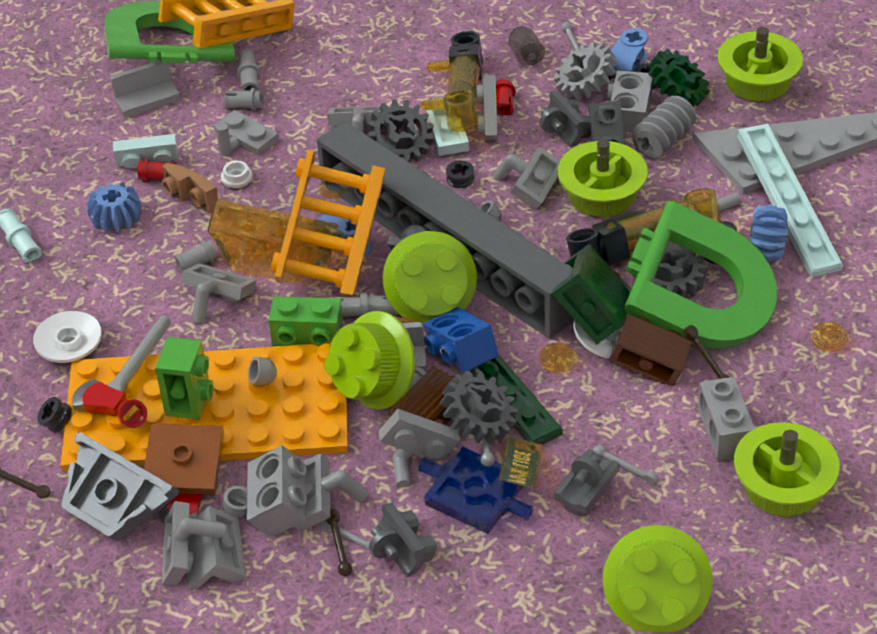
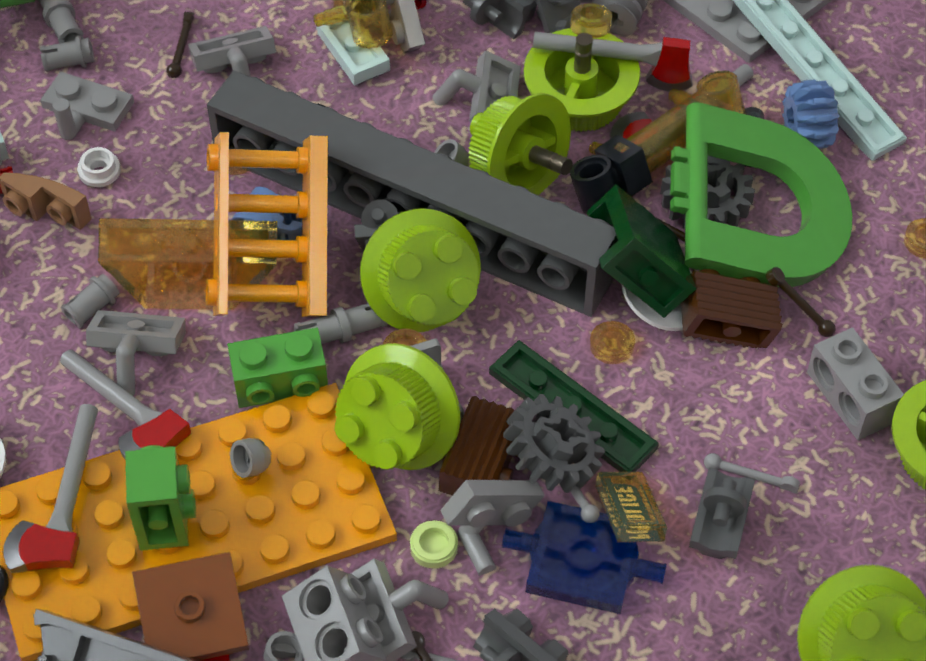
camera: 20 degrees left, 10 degrees up
(137, 418) = (105, 566): red hinge -> none
(213, 343) = (154, 427): none -> piece
(315, 123) = (174, 70): none -> dark brown hinge
(372, 459) = (434, 544): none -> yellowish green tile
(398, 119) = (310, 50): dark grey gear -> none
(460, 167) = (392, 95): black bush -> none
(460, 339) = (491, 349): blue brick -> none
(539, 207) = (522, 141): none -> lime piece
(622, 137) = (591, 19): none -> clear yellow tile
(672, 170) = (668, 59): none -> piece

